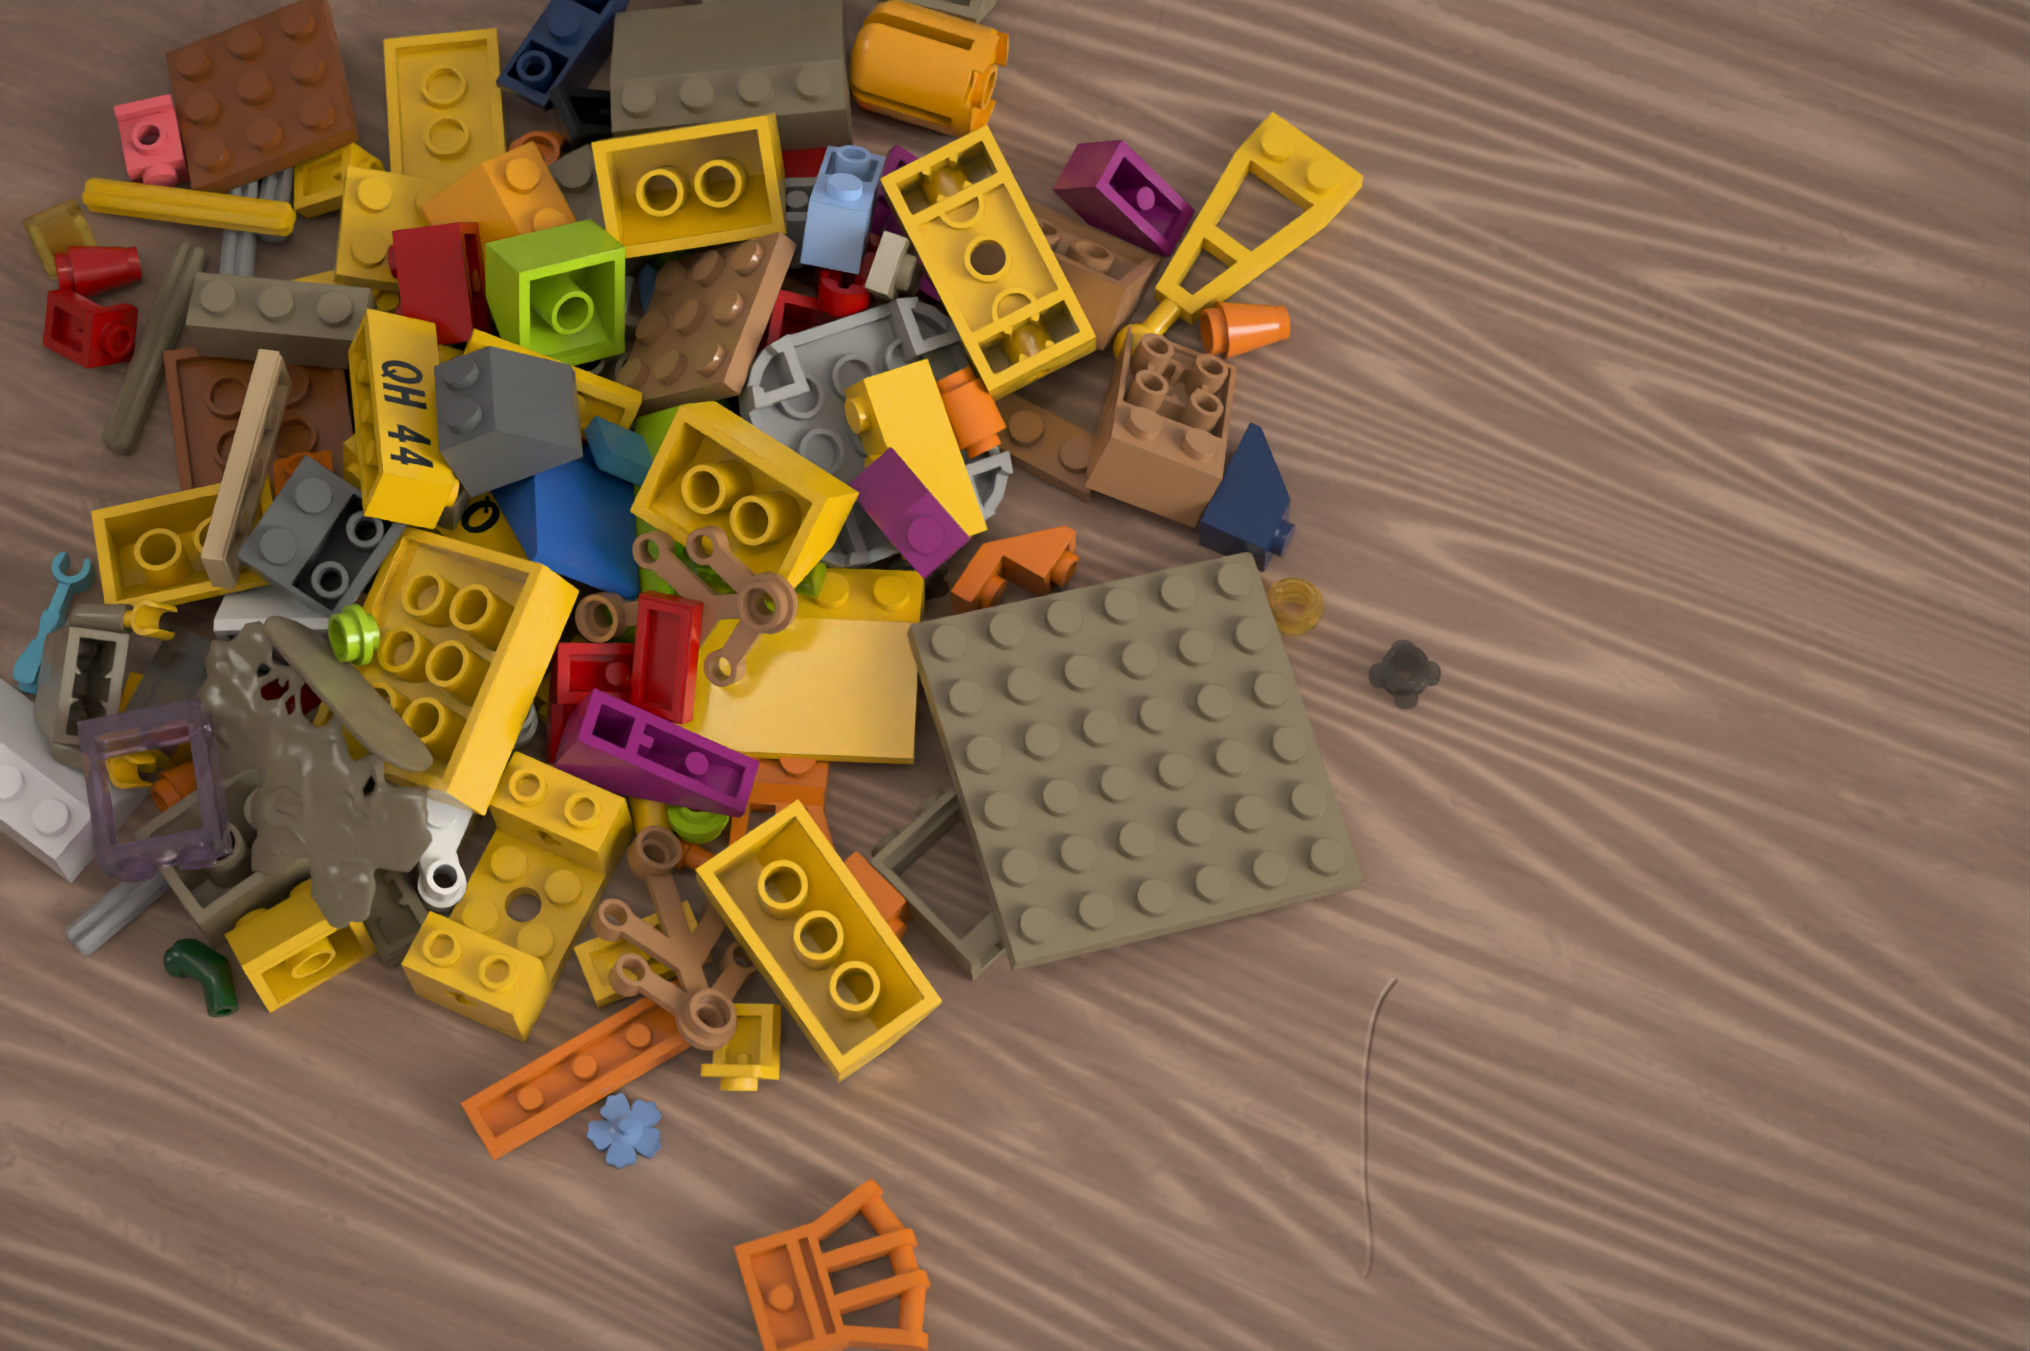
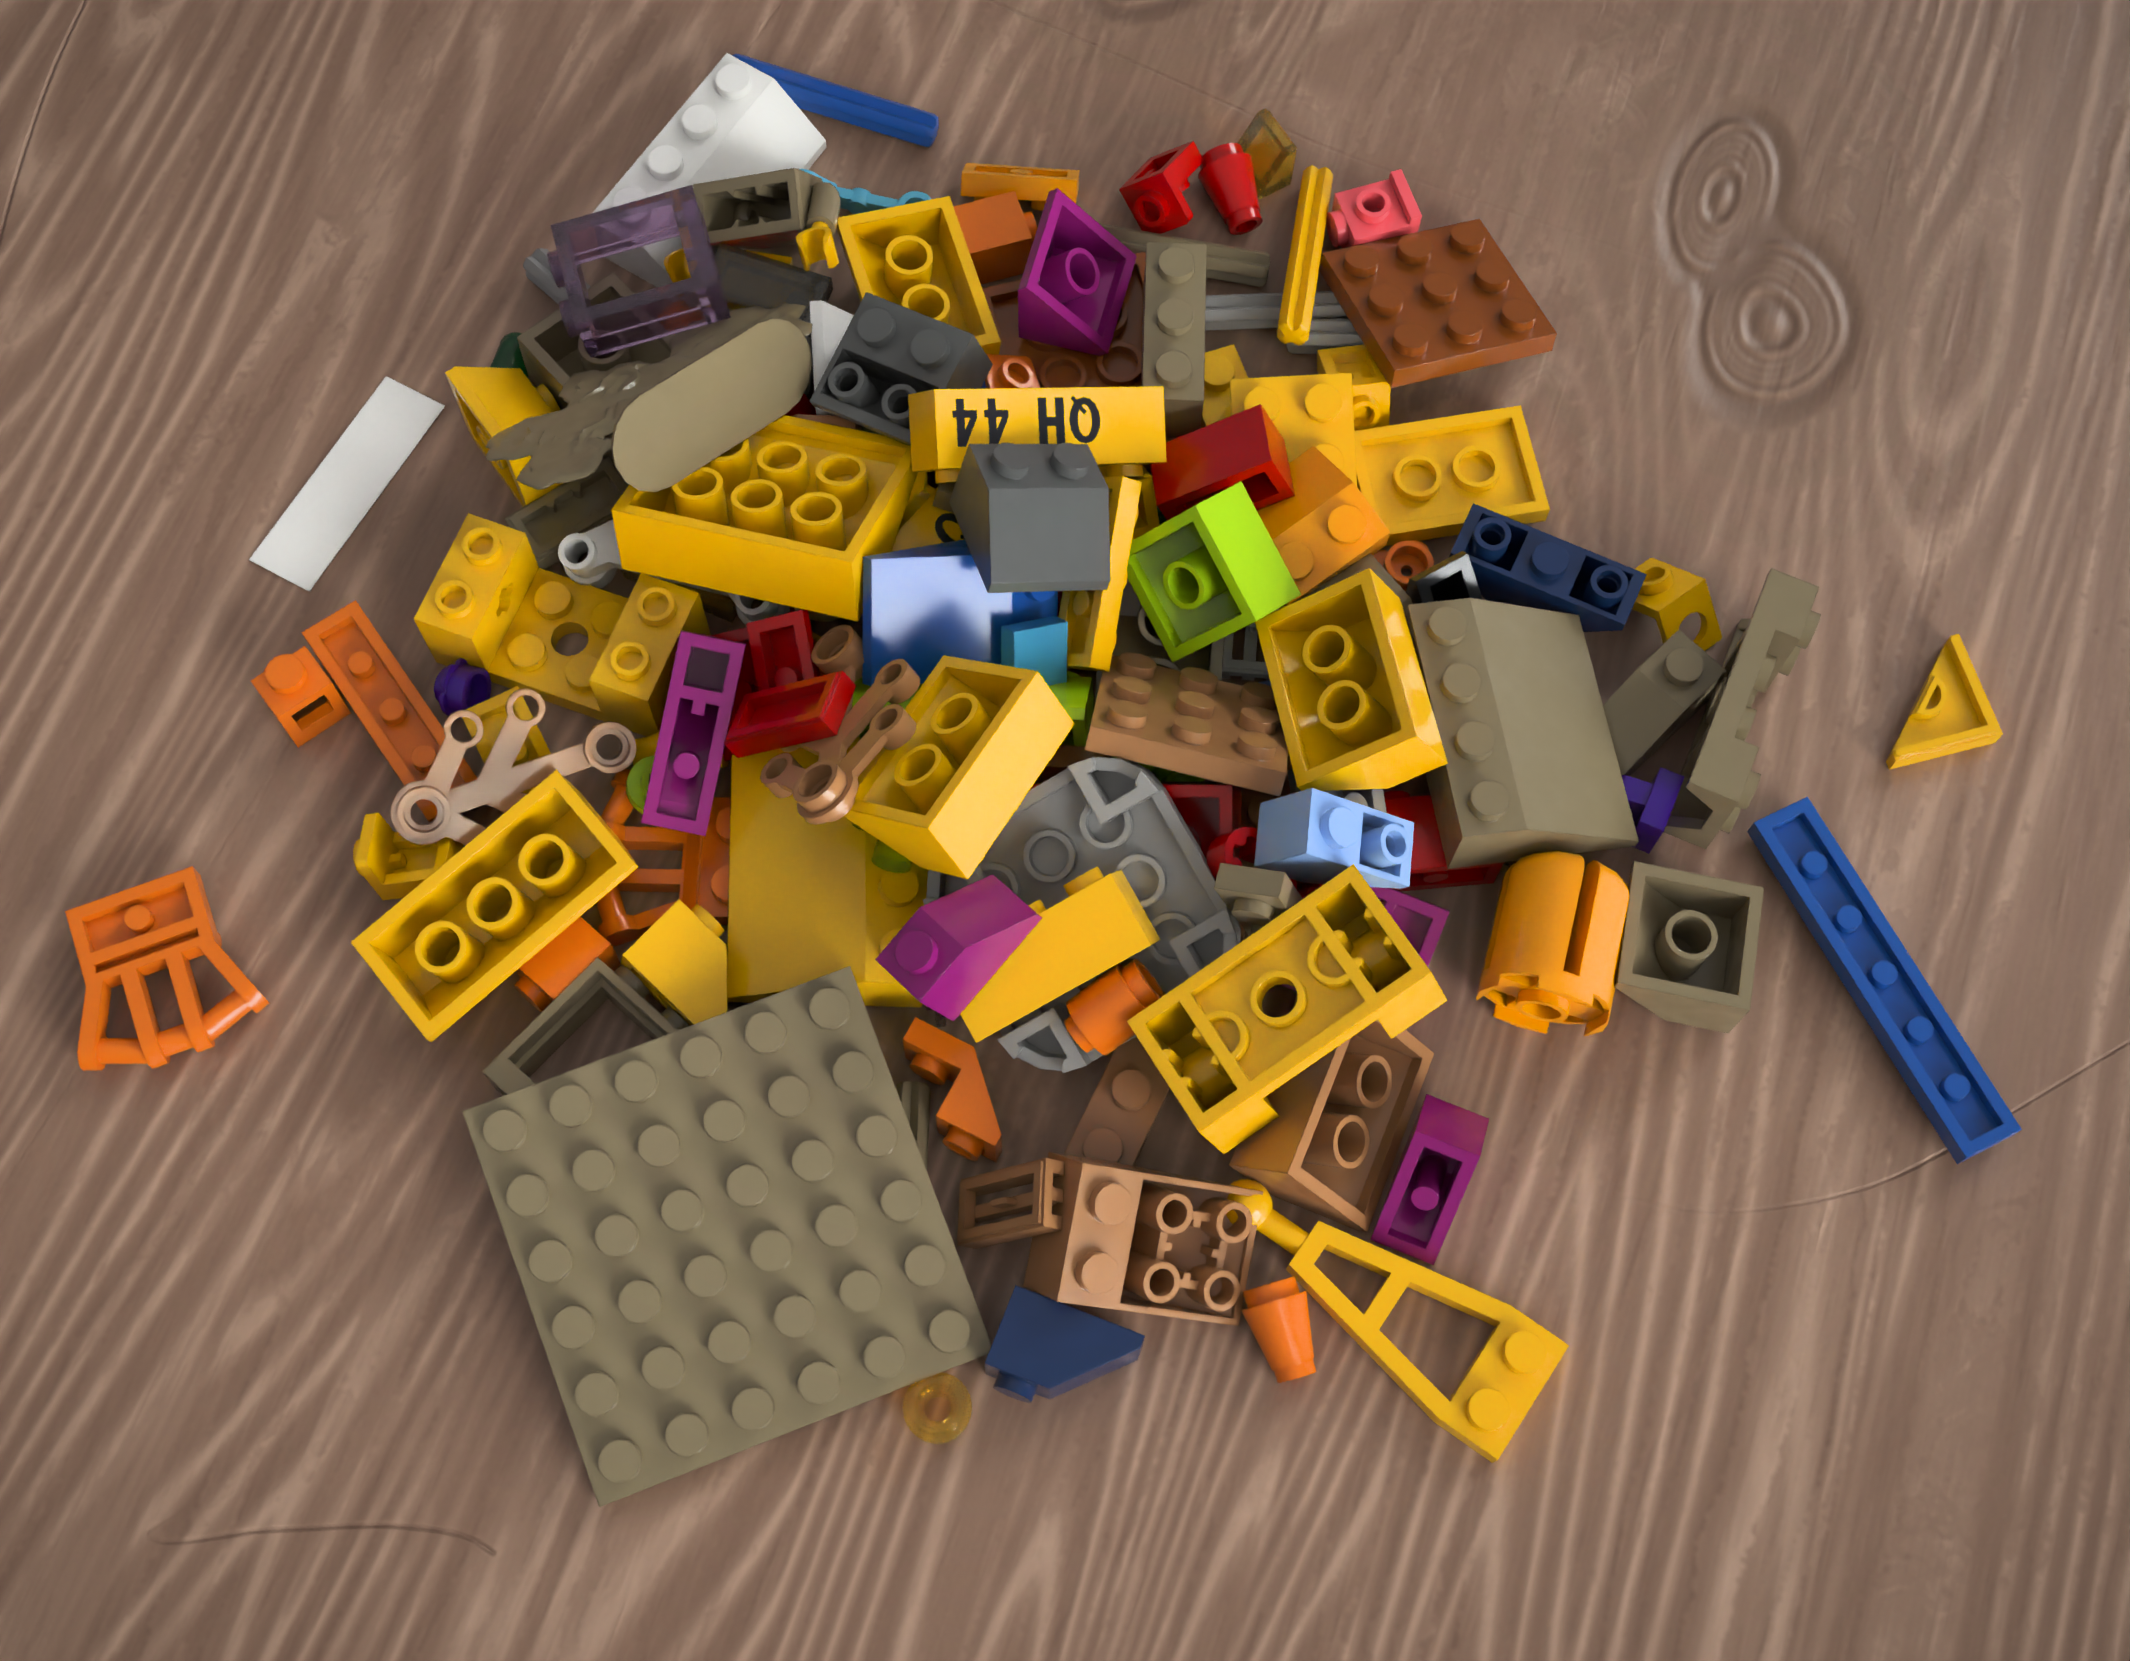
camera: 80 degrees right, 0 degrees up
(60, 463) = (1028, 182): none -> light orange plate
(119, 476) = (997, 235): none -> orange brick
(186, 409) = (1073, 280): none -> magenta slope
(246, 468) = (1002, 310): tan tile -> none
(309, 1133) = (347, 483): none -> white sticker
(353, 635) = (789, 411): lime plate -> none
(558, 1155) = (292, 684): none -> orange brick
(565, 1006) = (461, 686): none -> dark purple plate
(626, 1131) = (337, 762): medium blue plant -> none
(881, 790) = (683, 962): none -> yellow slope
(1130, 480) = (1040, 1201): none -> medium nougat tile
(1407, 657) = (838, 1545): clear smoke plate -> none

